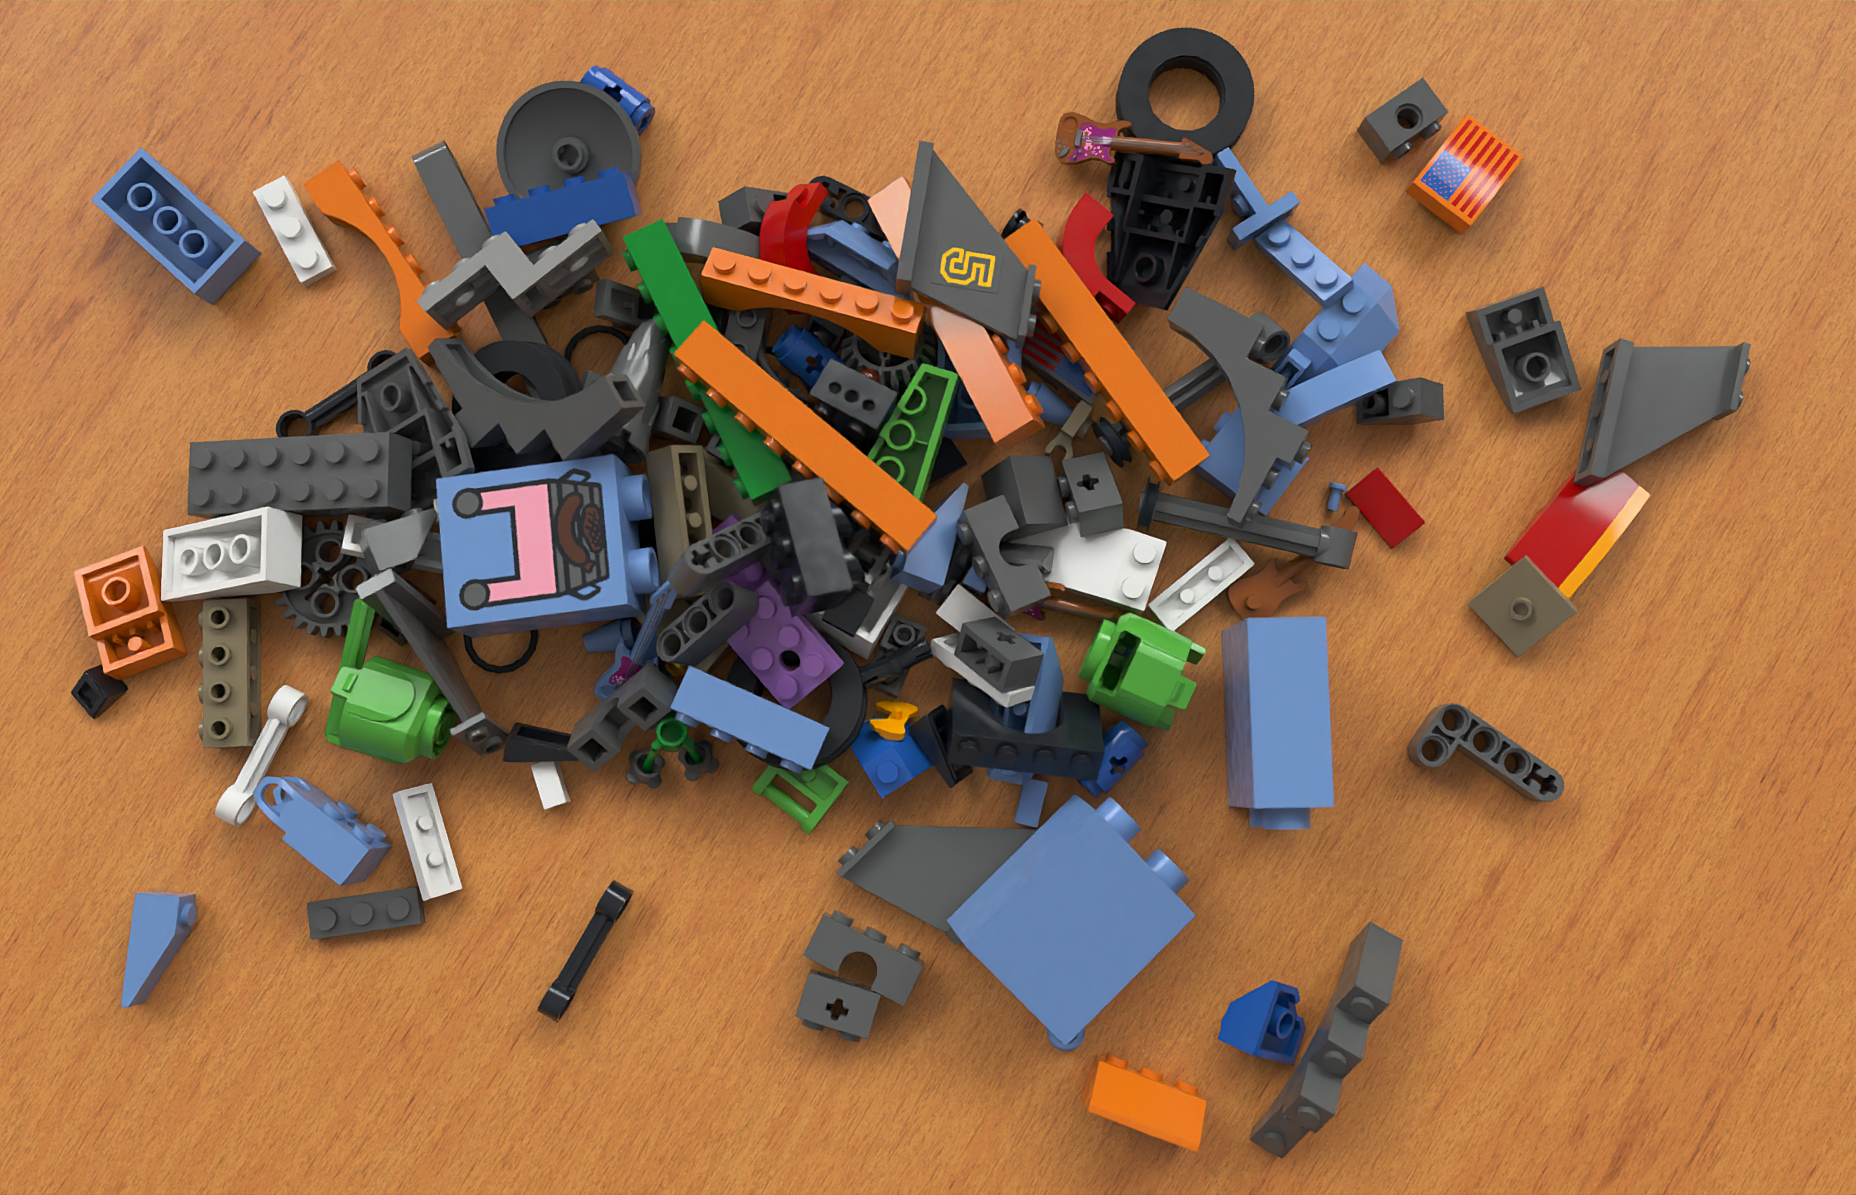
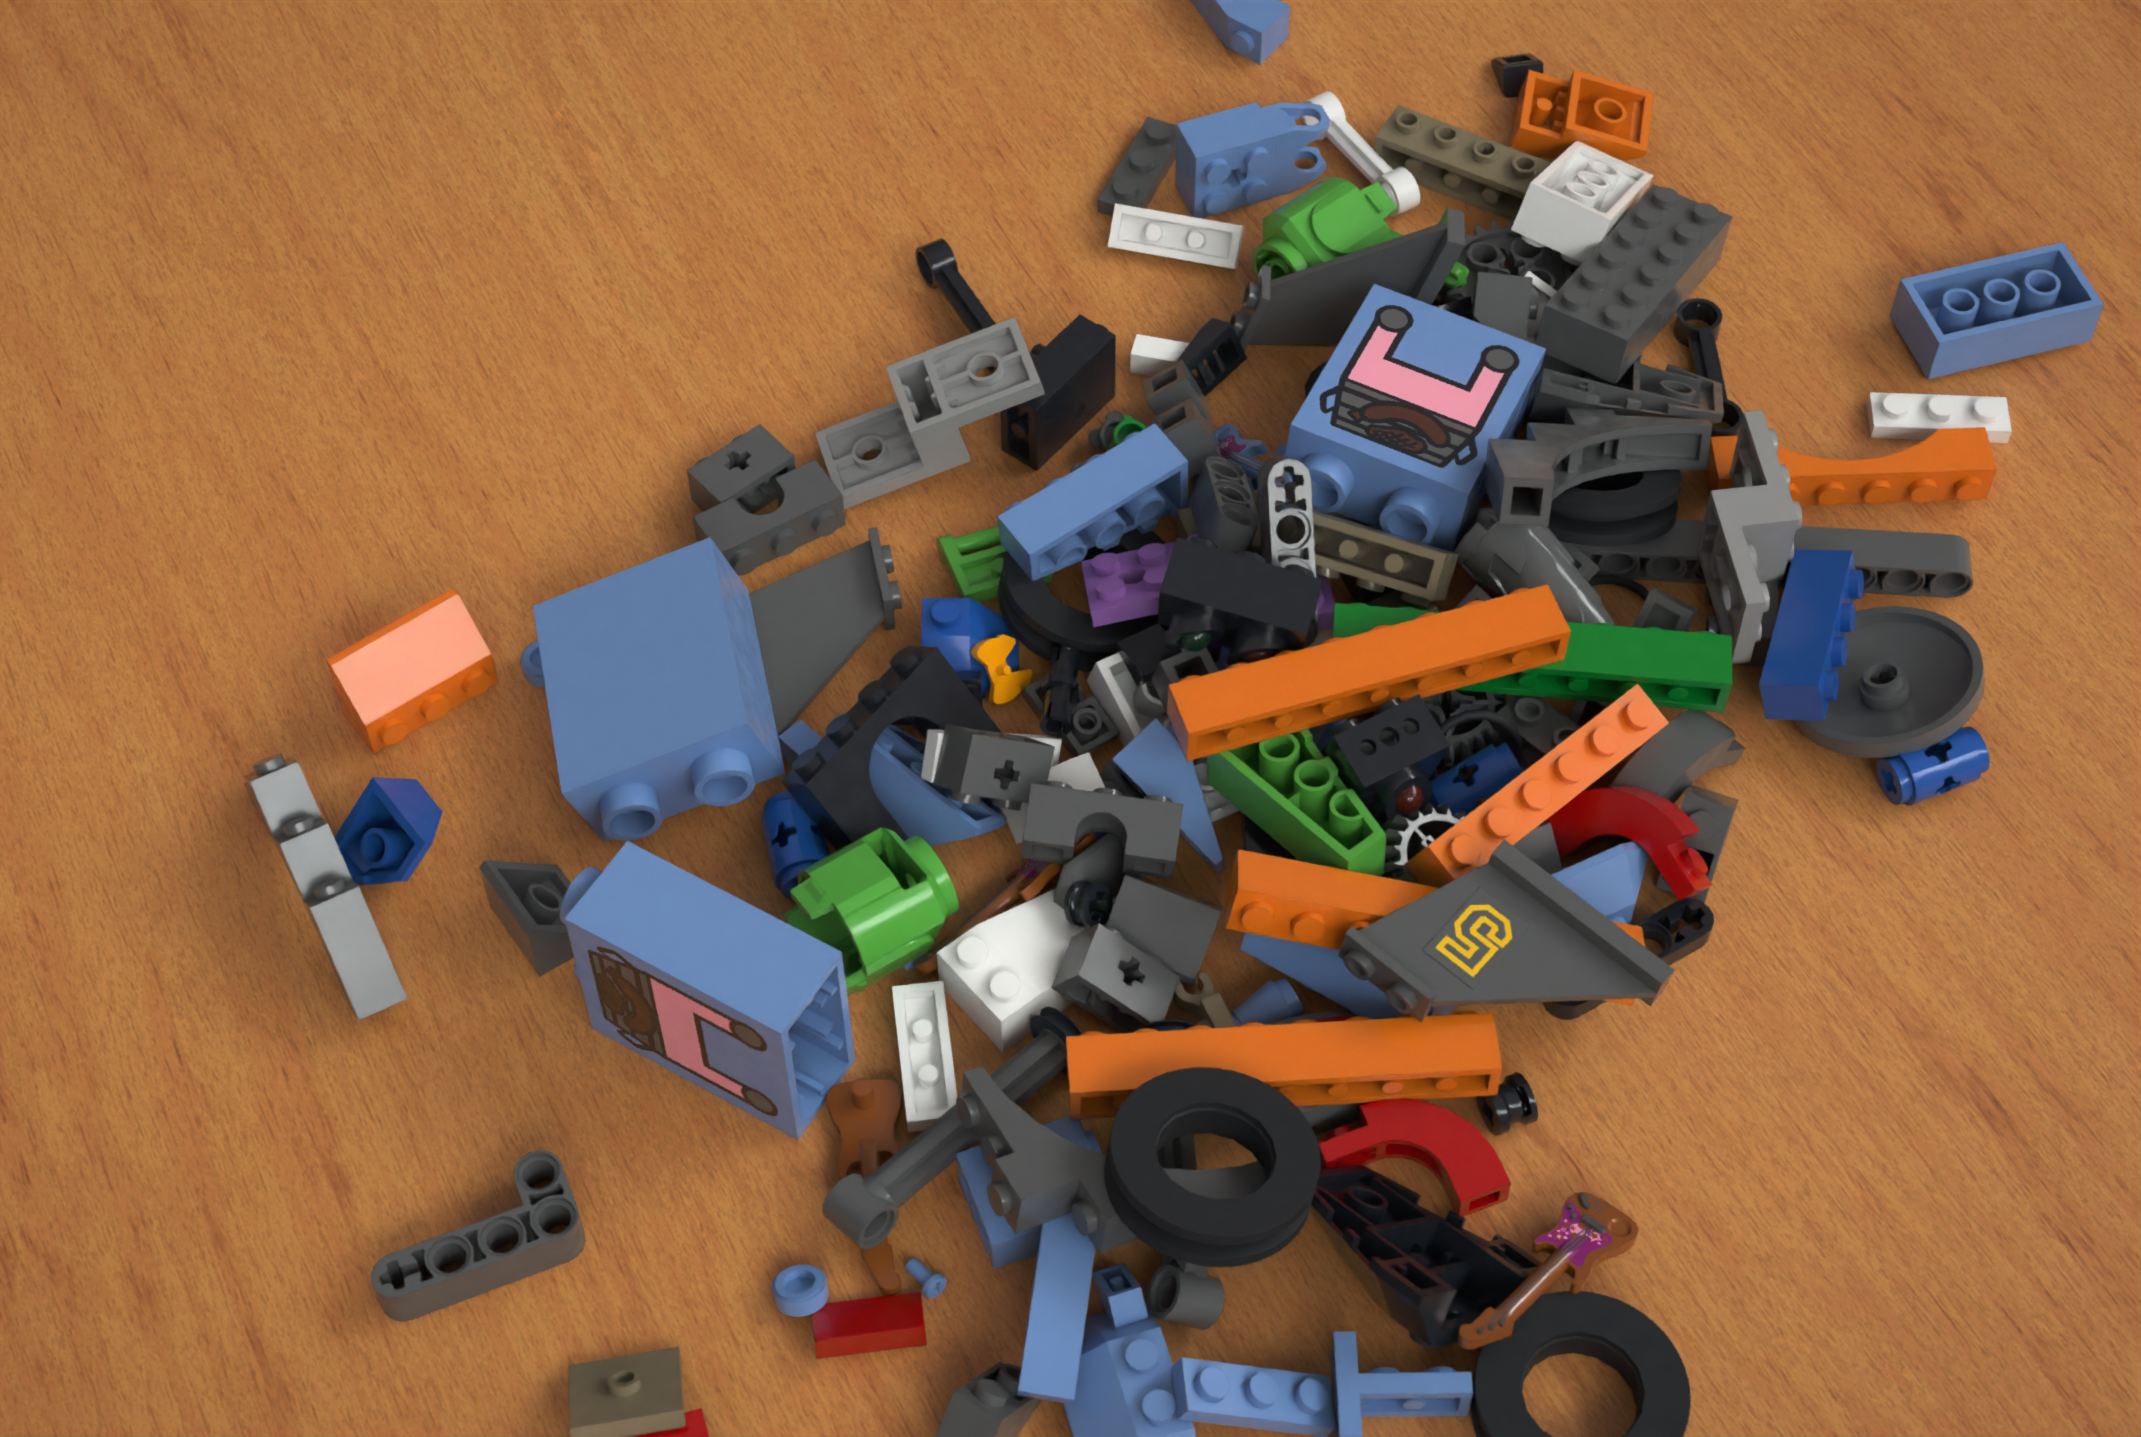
camera: 120 degrees right, 30 degrees down
(636, 826) = (1077, 383): none -> black piece
(722, 894) = (935, 398): none -> light grey bracket
(1049, 543) = (1088, 904): none -> black bush
(1214, 286) = (1193, 1225): none -> black tyre
(1253, 887) = (529, 905): none -> dark grey slope
(1391, 558) = (800, 1290): none -> medium blue tile

